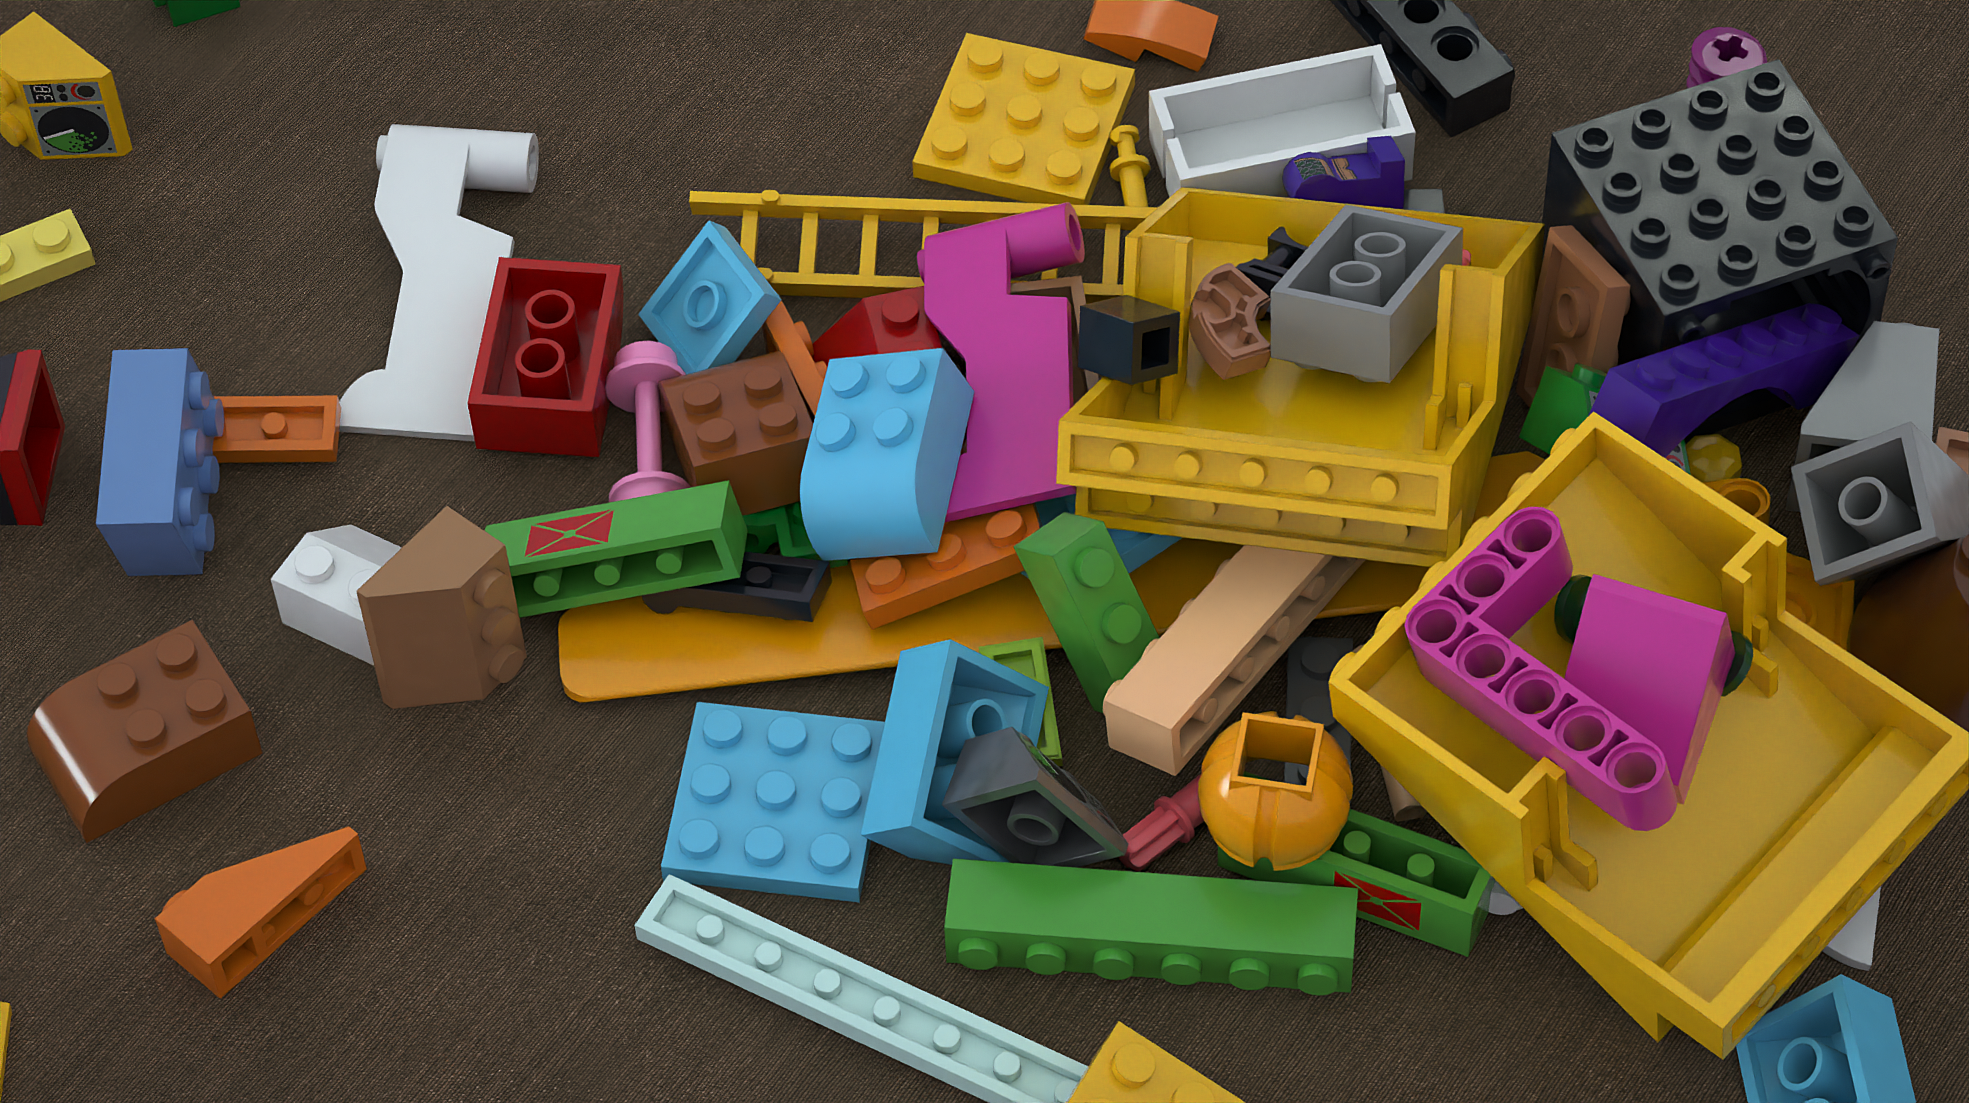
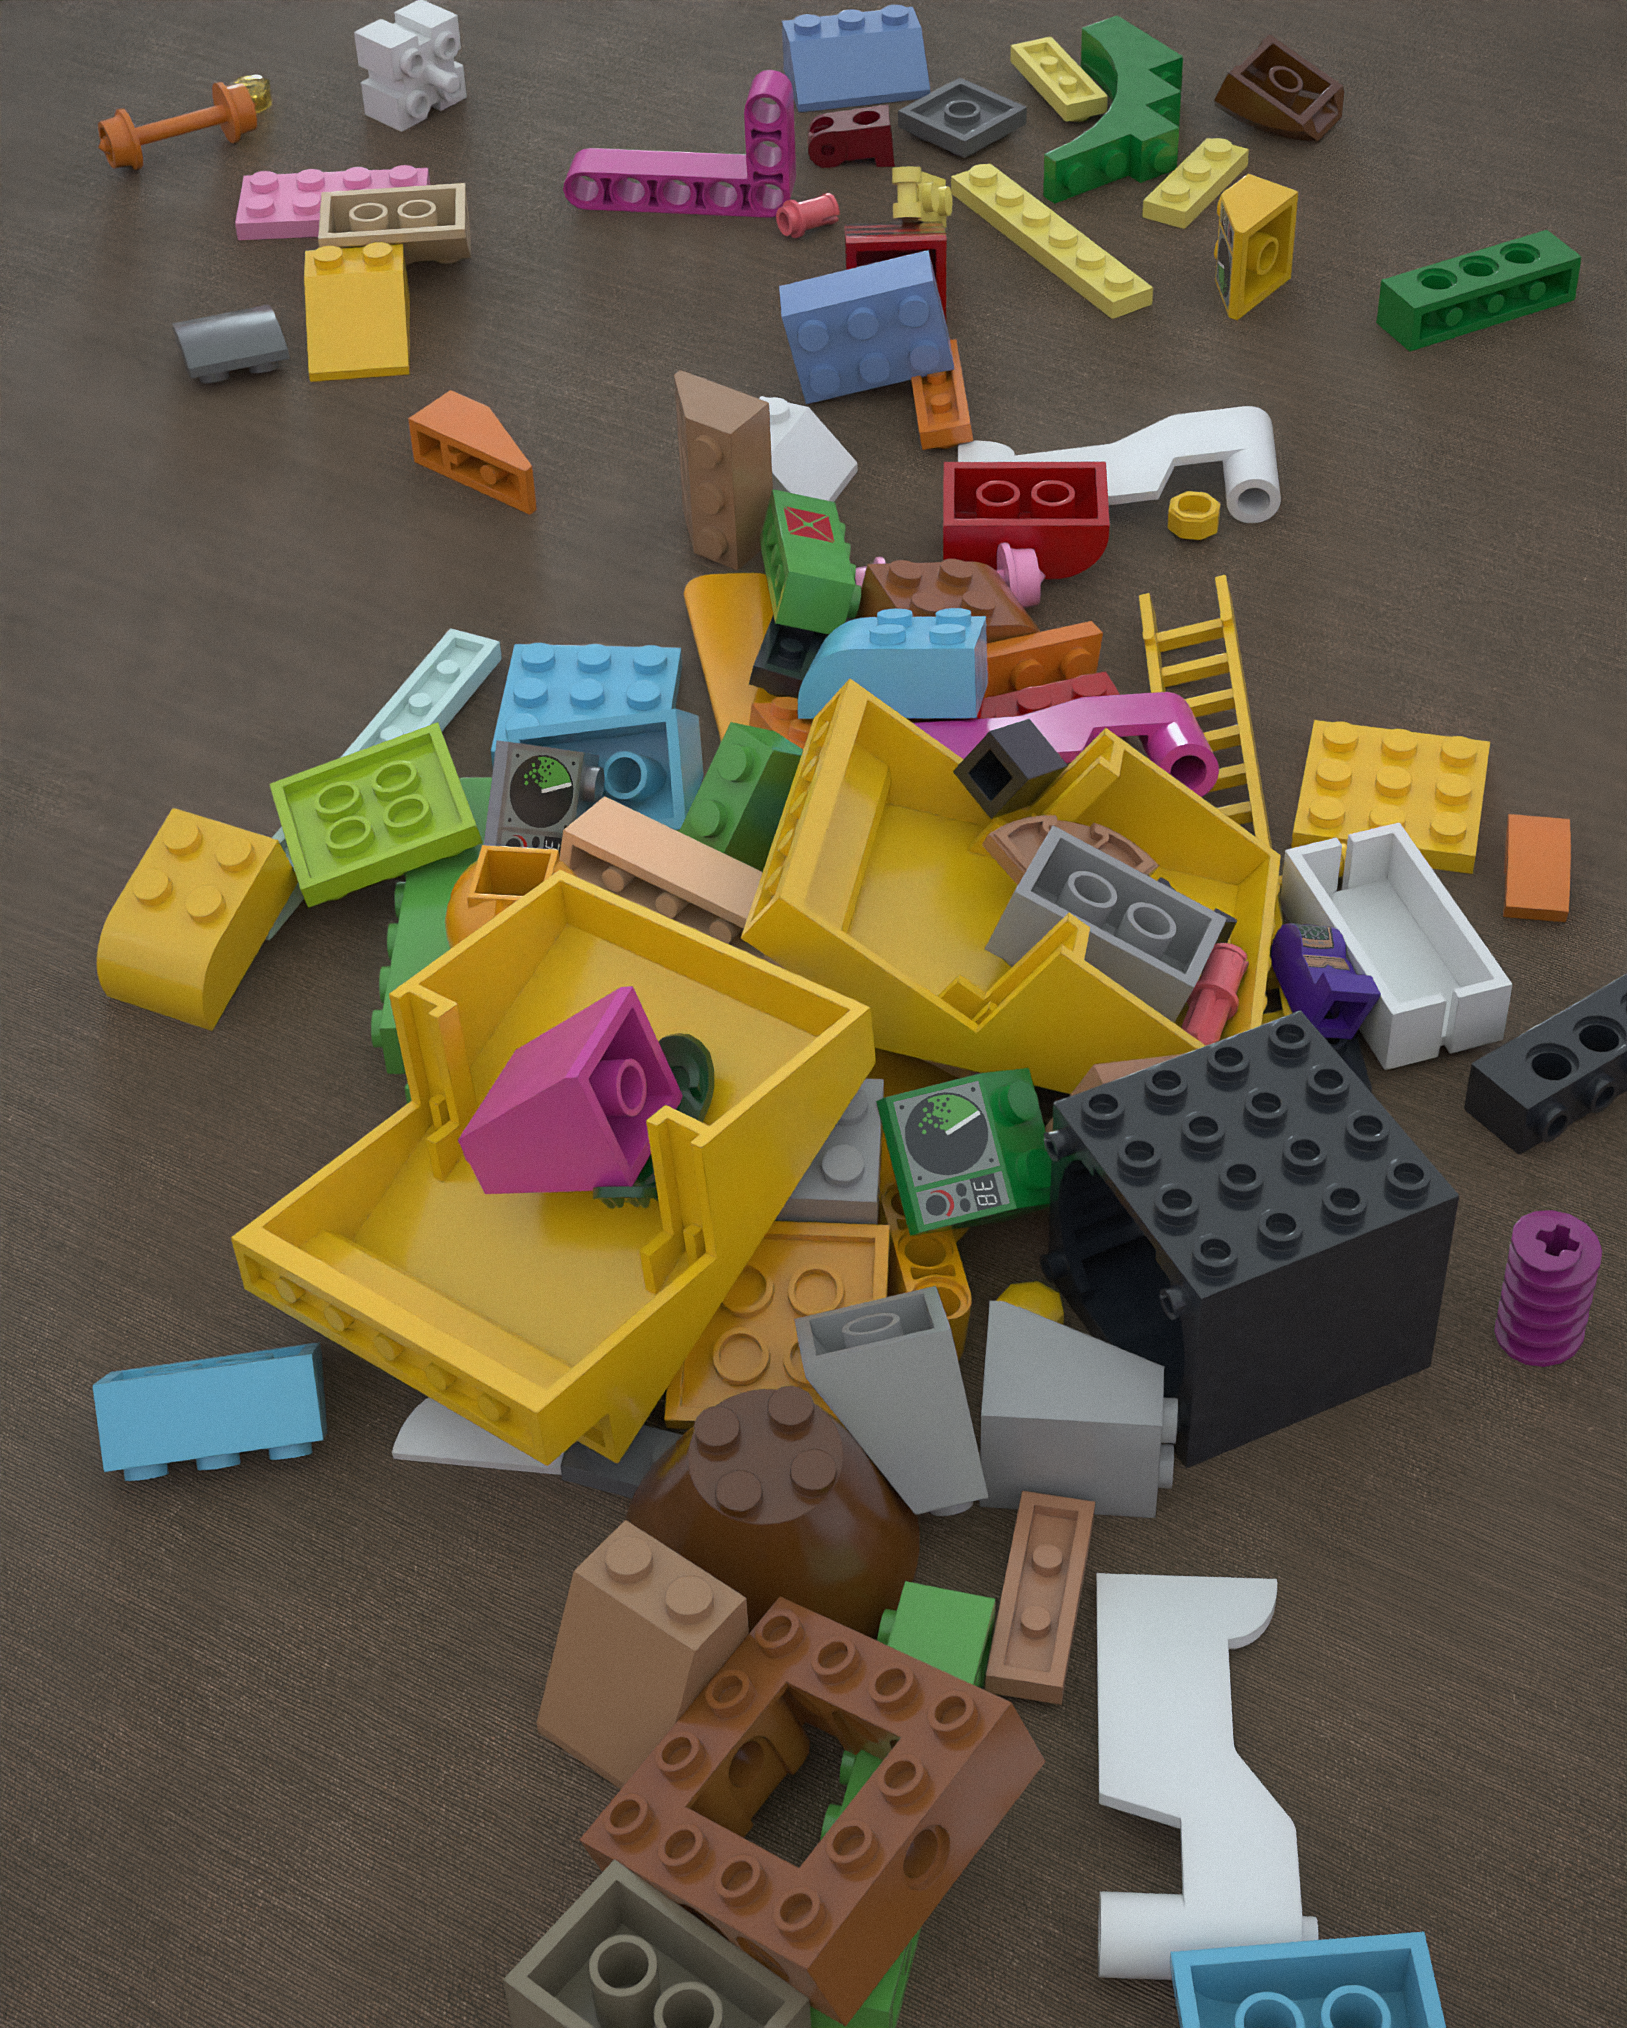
camera: 85 degrees right, 10 degrees down
(141, 731) = (629, 380): dark orange brick -> none
(537, 220) = (1193, 515): none -> yellow tile
(710, 302) = (1097, 597): medium azure plate -> none
(1022, 961) = (374, 815): none -> lime plate
(1476, 615) = (542, 983): dark pink beam -> none
(1679, 388) = (945, 1110): dark purple arch -> none

